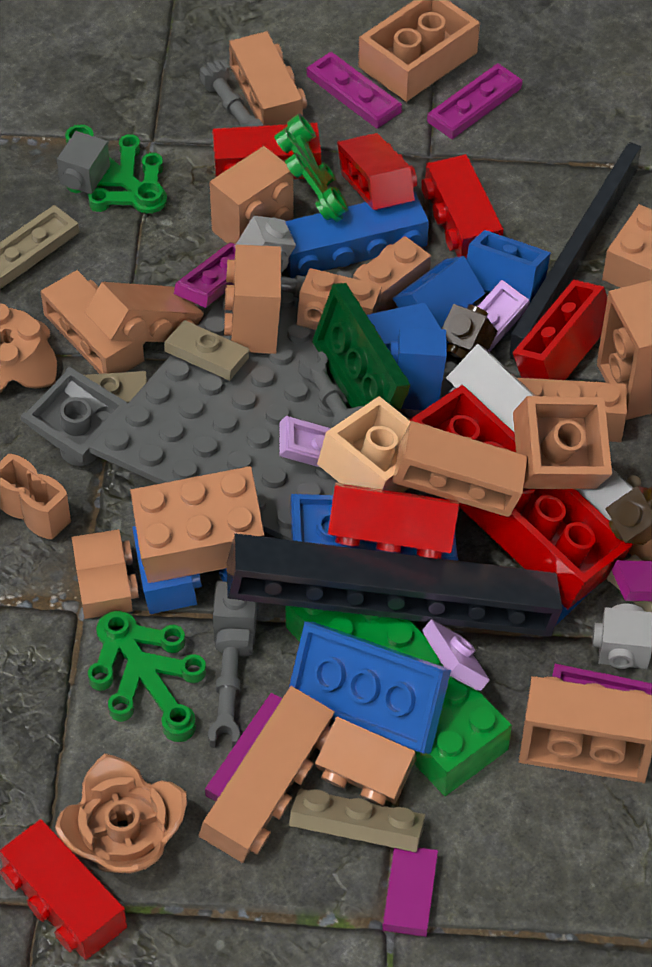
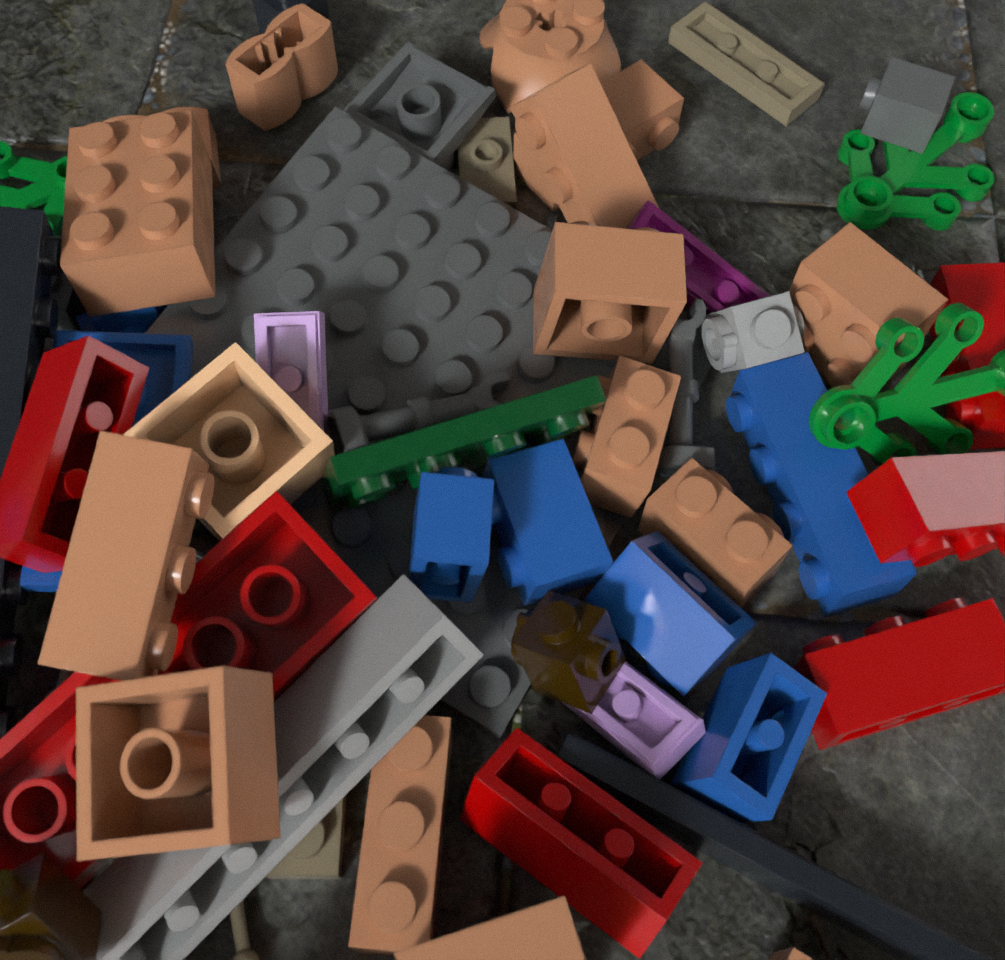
camera: 90 degrees right, 10 degrees up
(206, 350) = (515, 253): dark tan plate -> none

